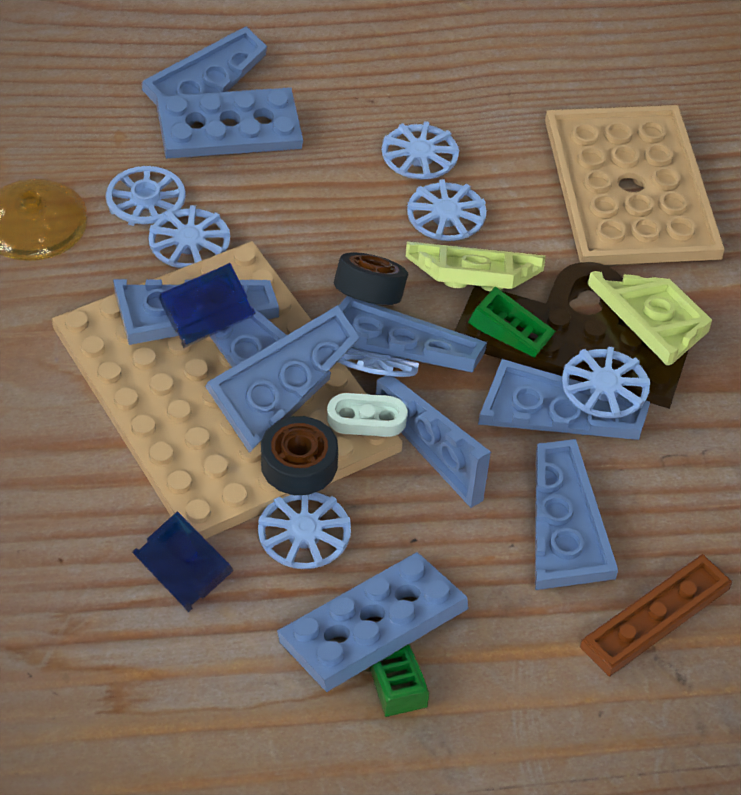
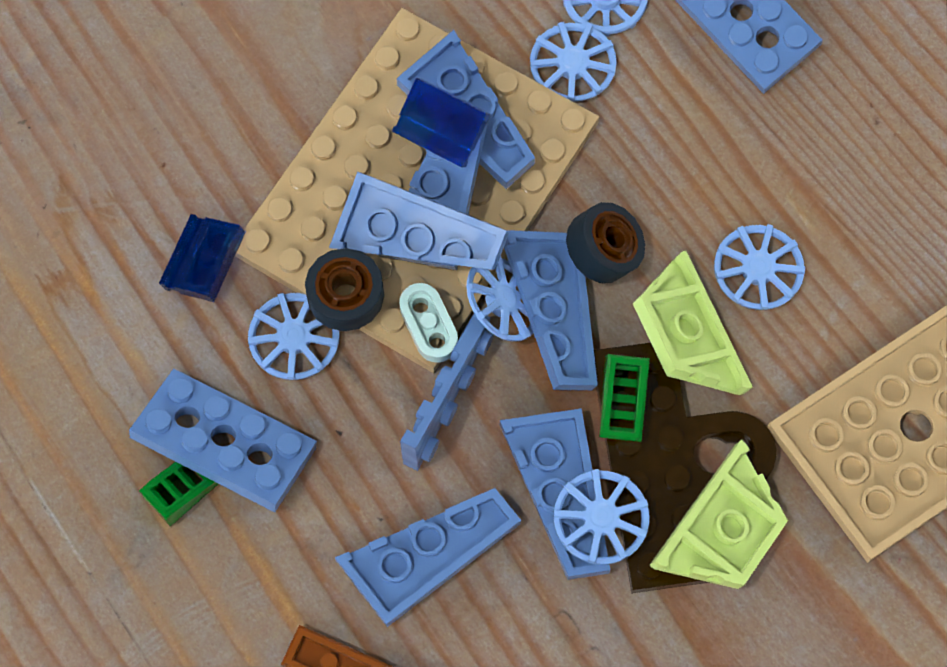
camera: 65 degrees right, 20 degrees up
(420, 150) = (828, 201): light blue wheel -> none

